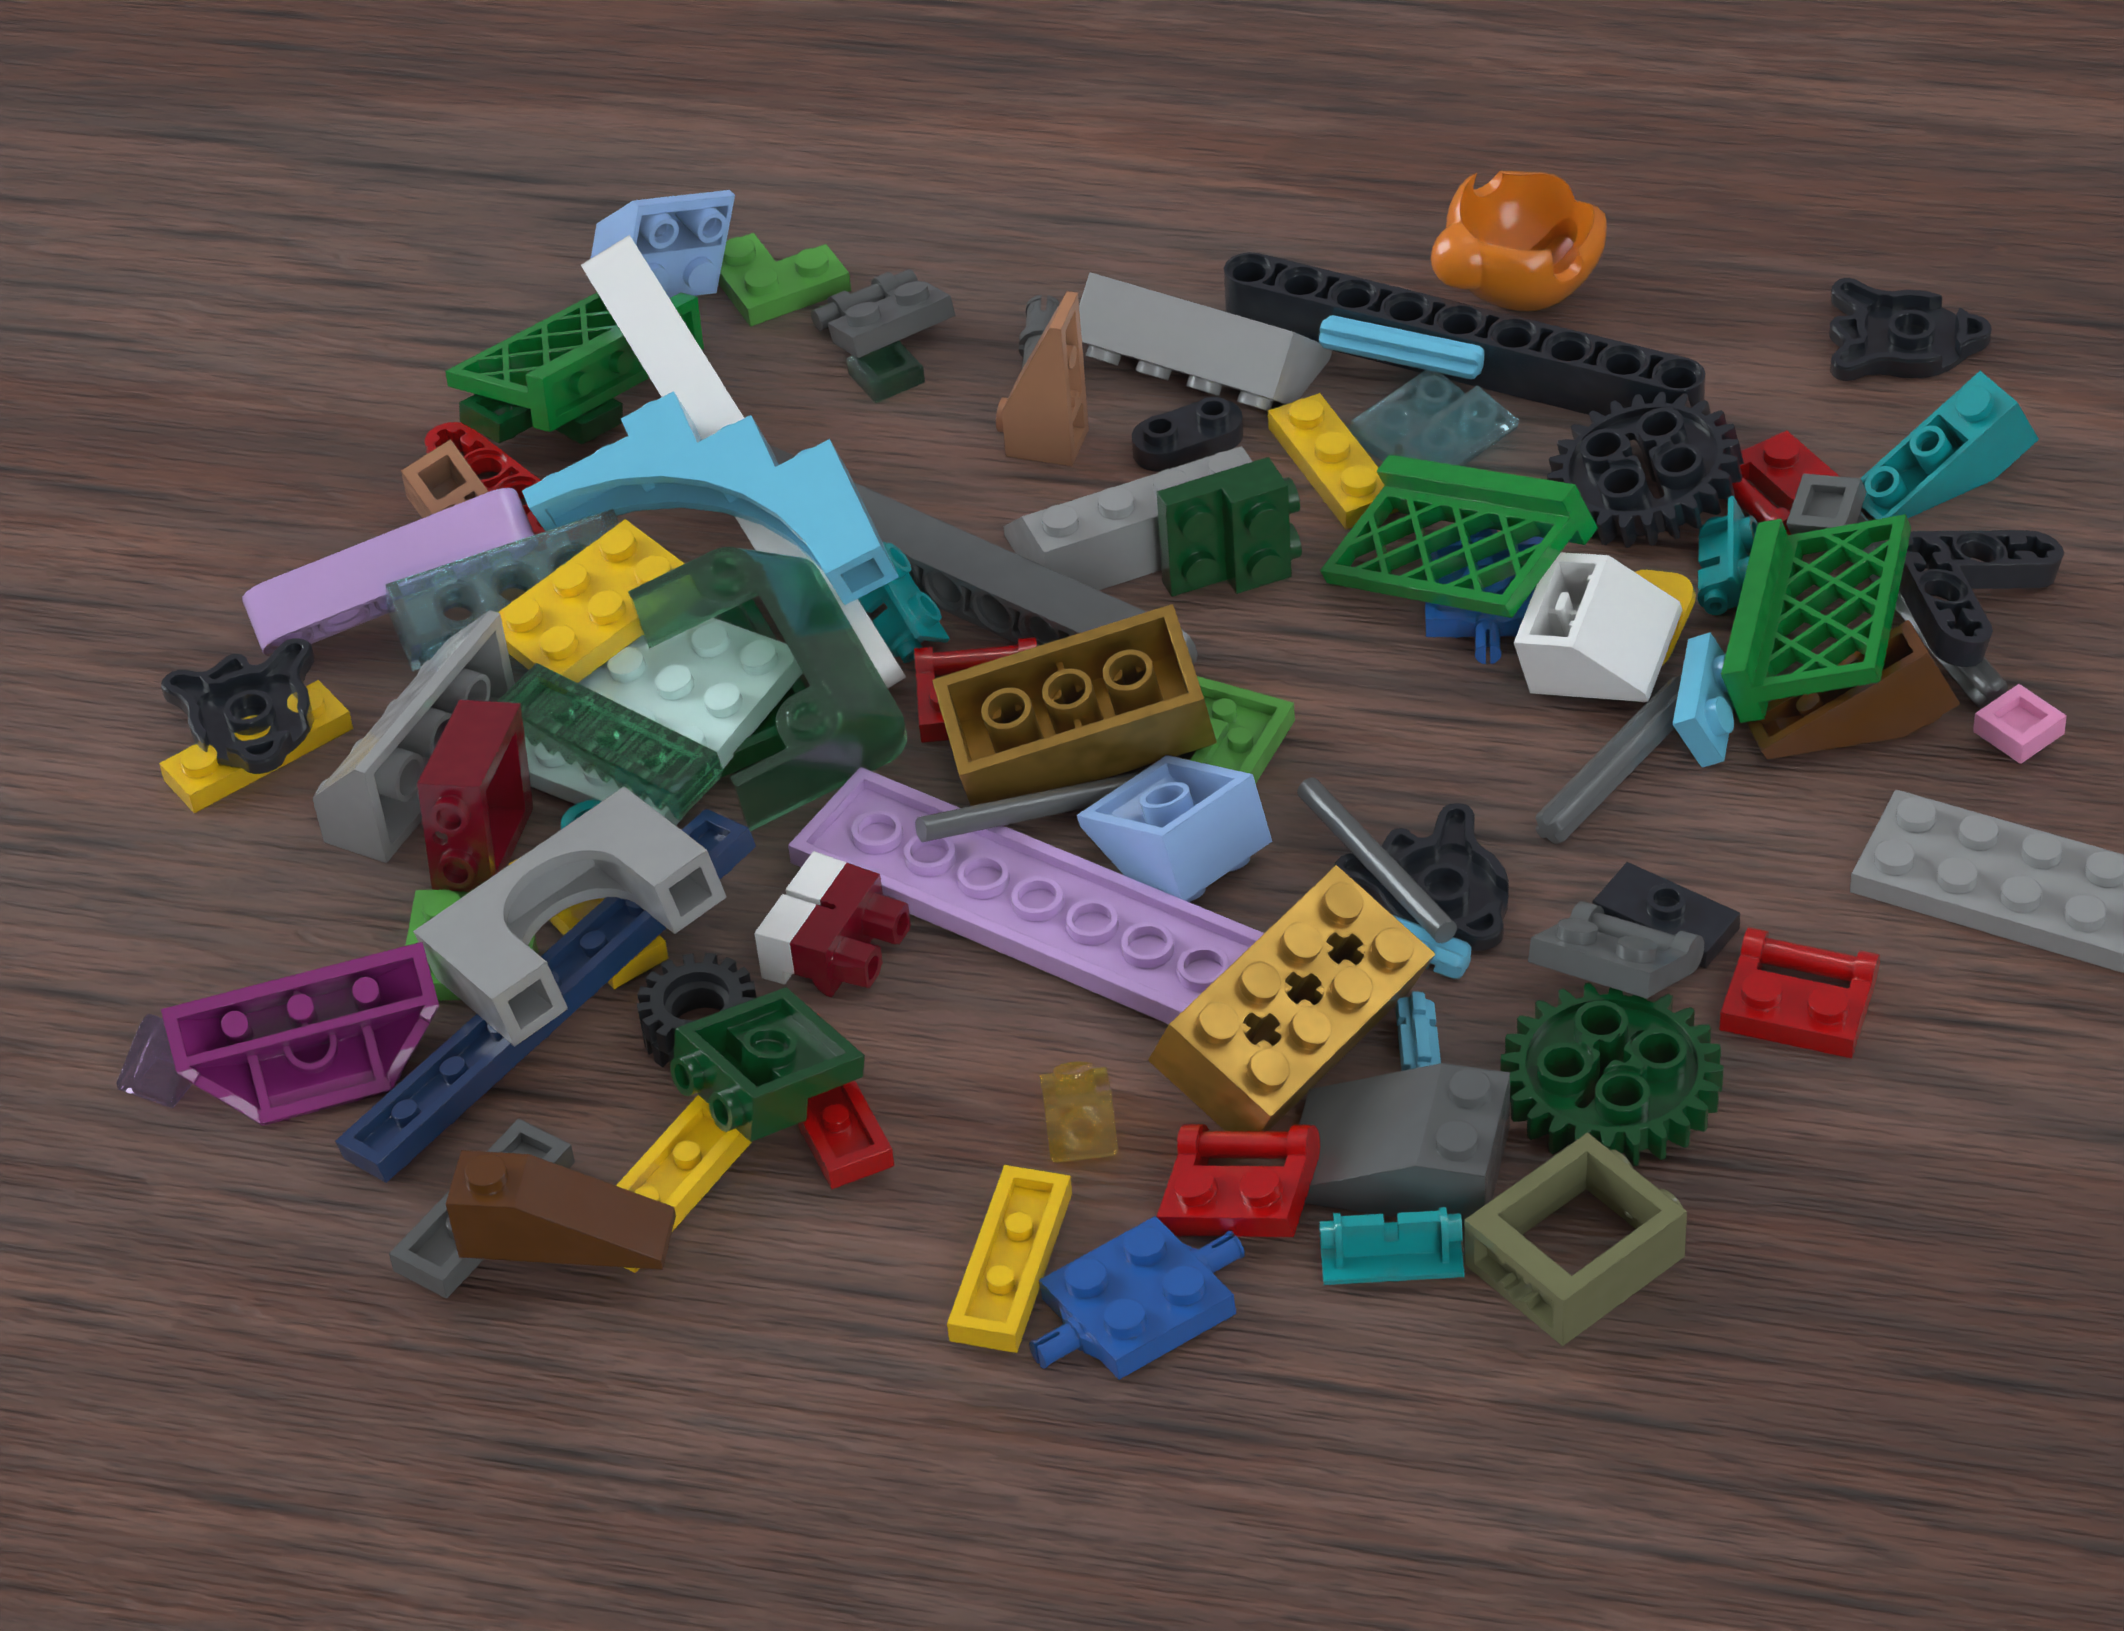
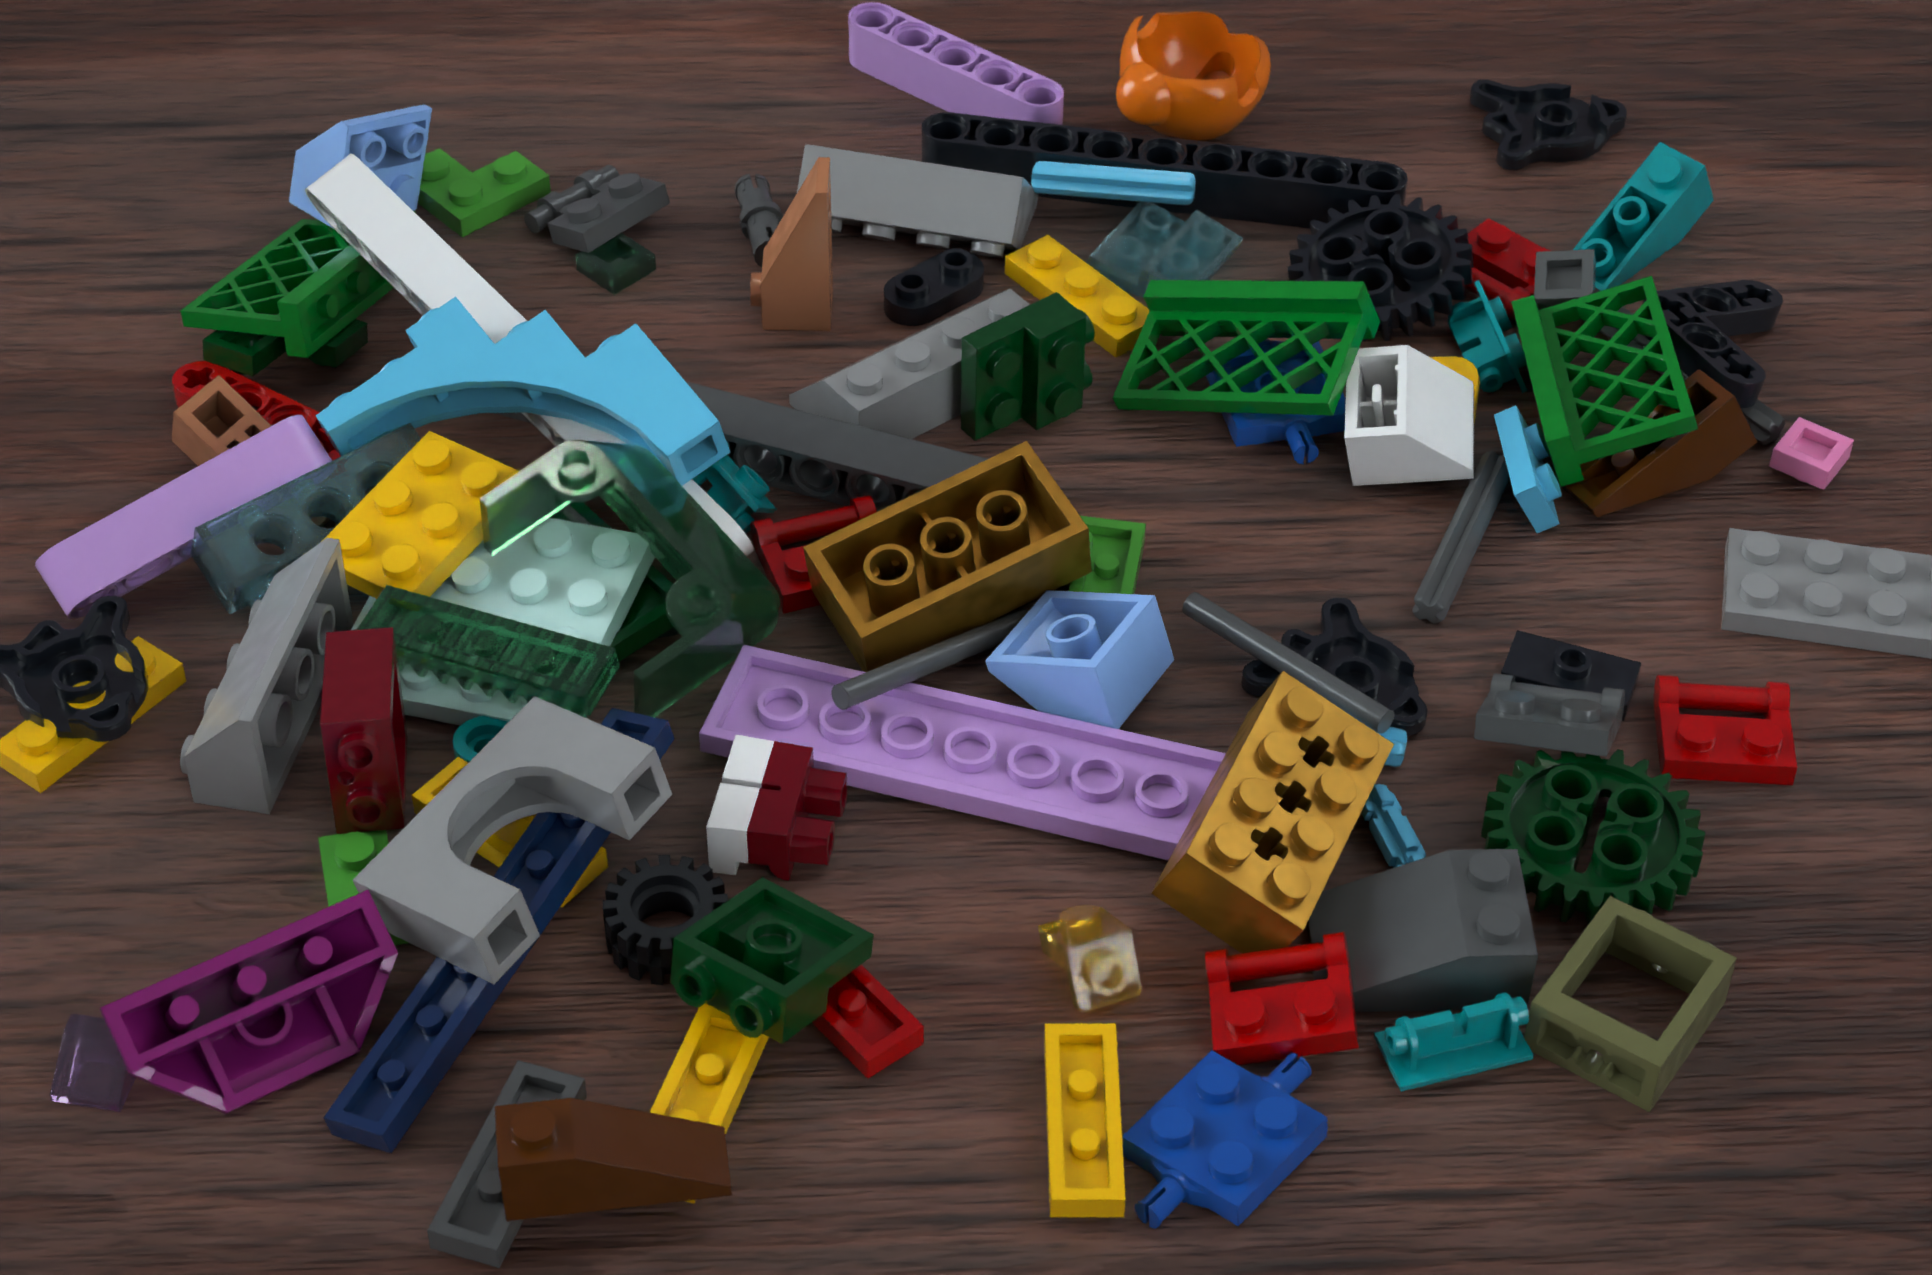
camera: 20 degrees left, 0 degrees up
(1286, 206) = (947, 68): none -> lavender beam

